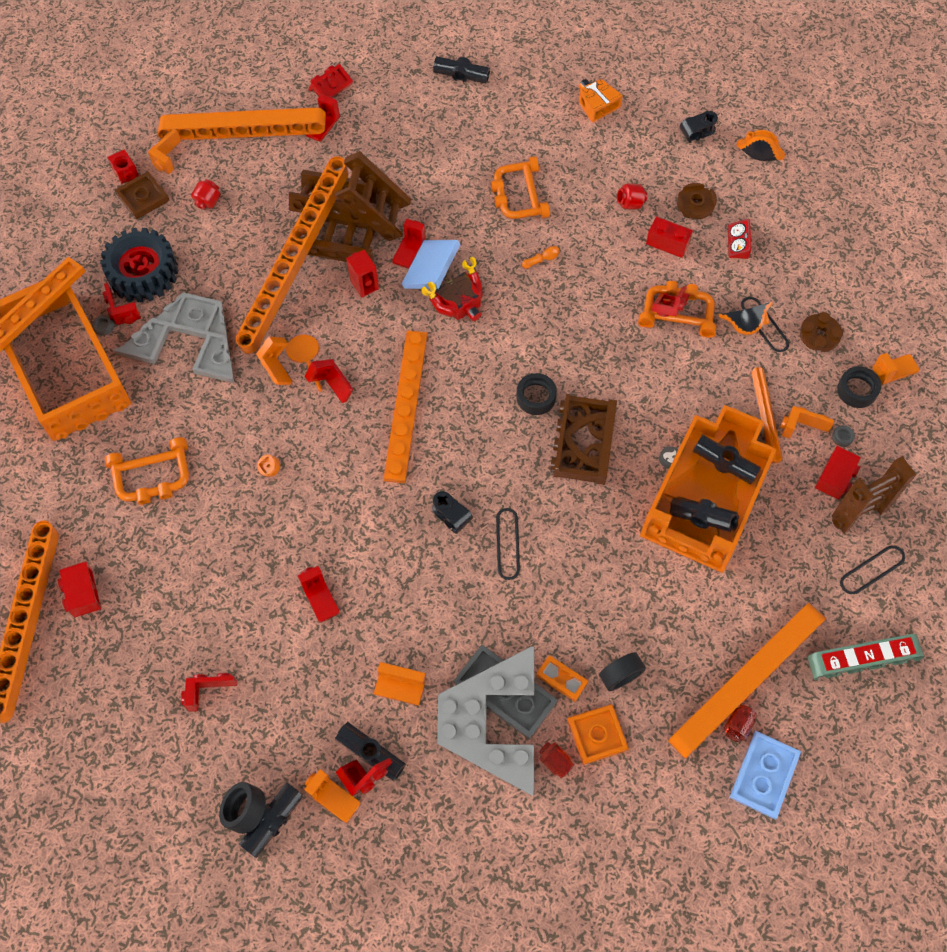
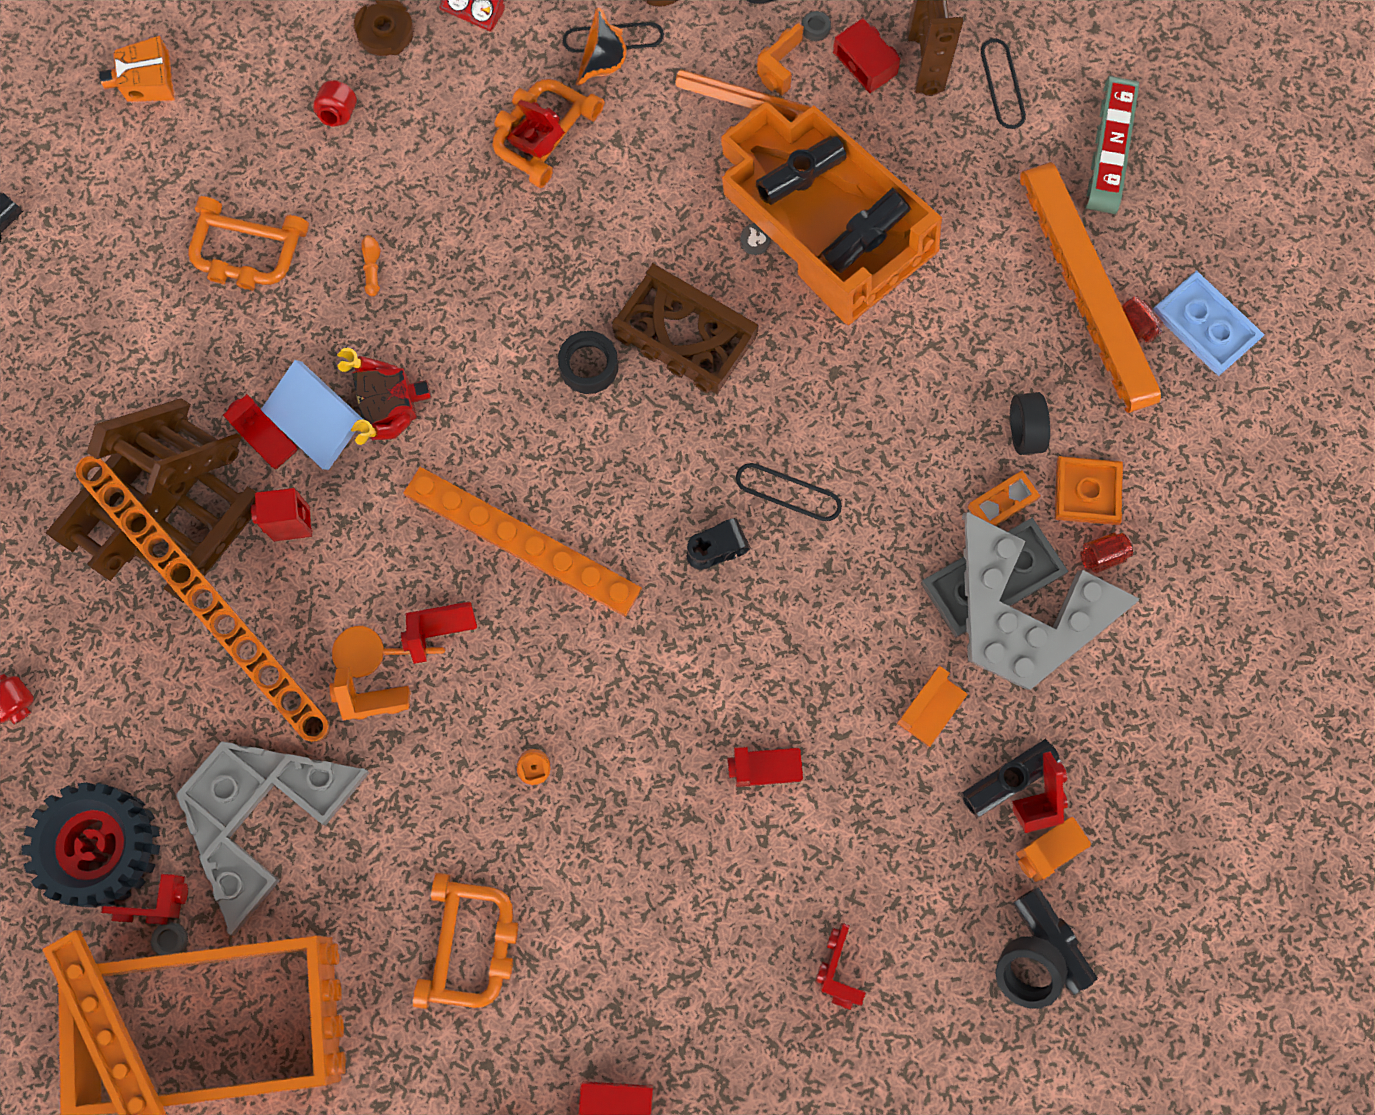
camera: 65 degrees left, 10 degrees up
(669, 237) = (427, 86): red brick -> none

